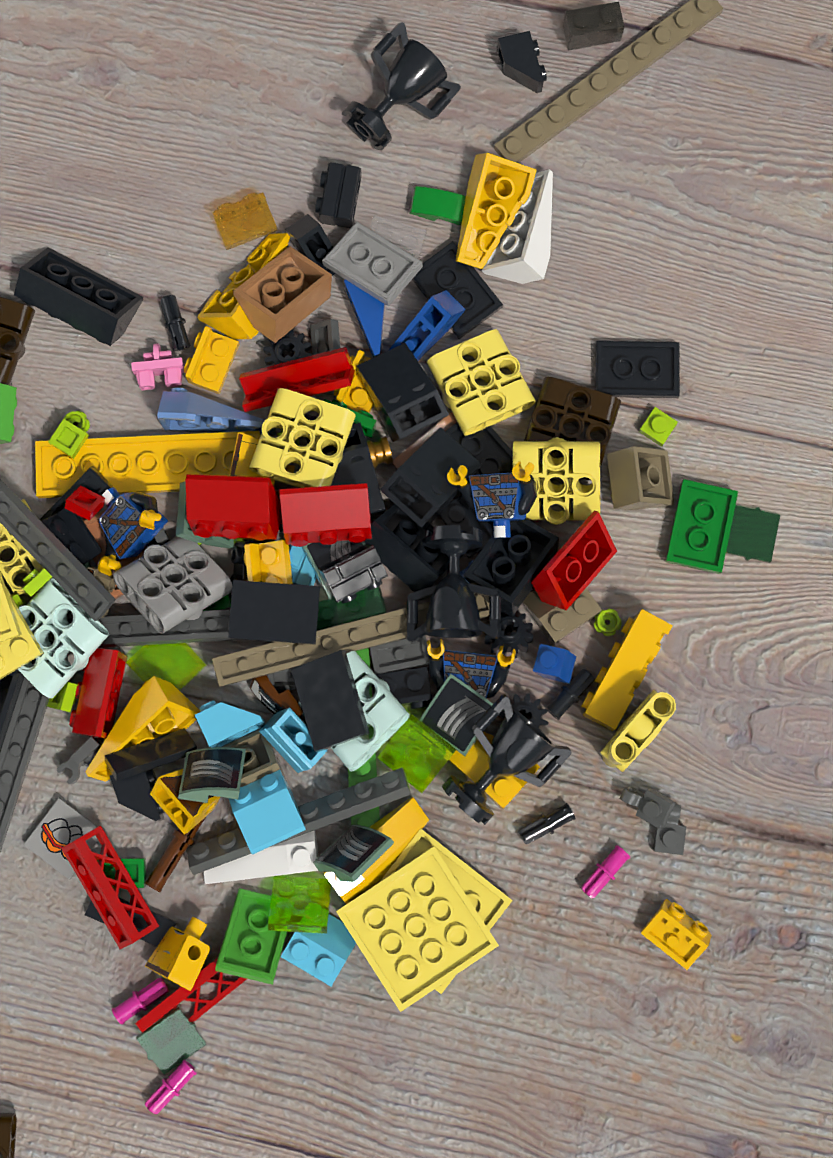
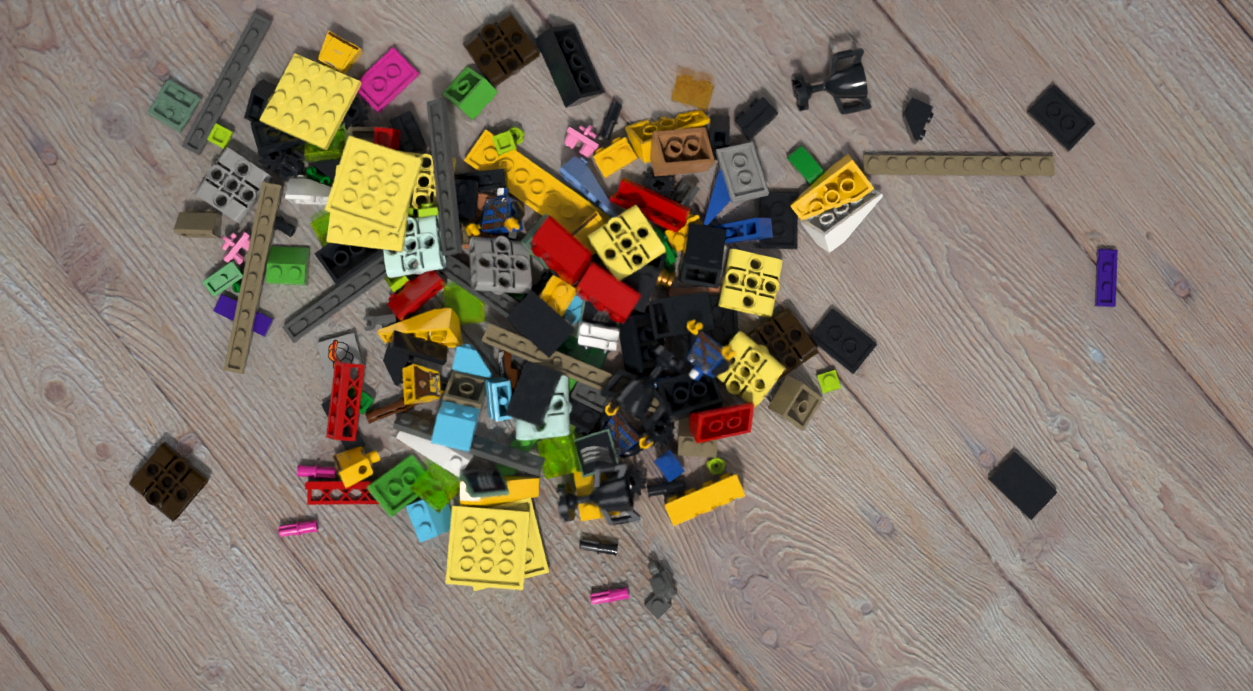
camera: 40 degrees right, 5 degrees up
(85, 503) = (485, 186): red plate -> none
(171, 1040) = (316, 505): clear green piece -> none
(212, 773) = (442, 383): slope -> none
(593, 25) = (972, 130): clear smoke brick -> none
(638, 730) = (684, 536): light yellow connector -> none
(677, 934) = (622, 657): yellow bracket -> none
(701, 526) = (808, 454): green plate -> none
(753, 534) = (833, 479): clear green piece -> none

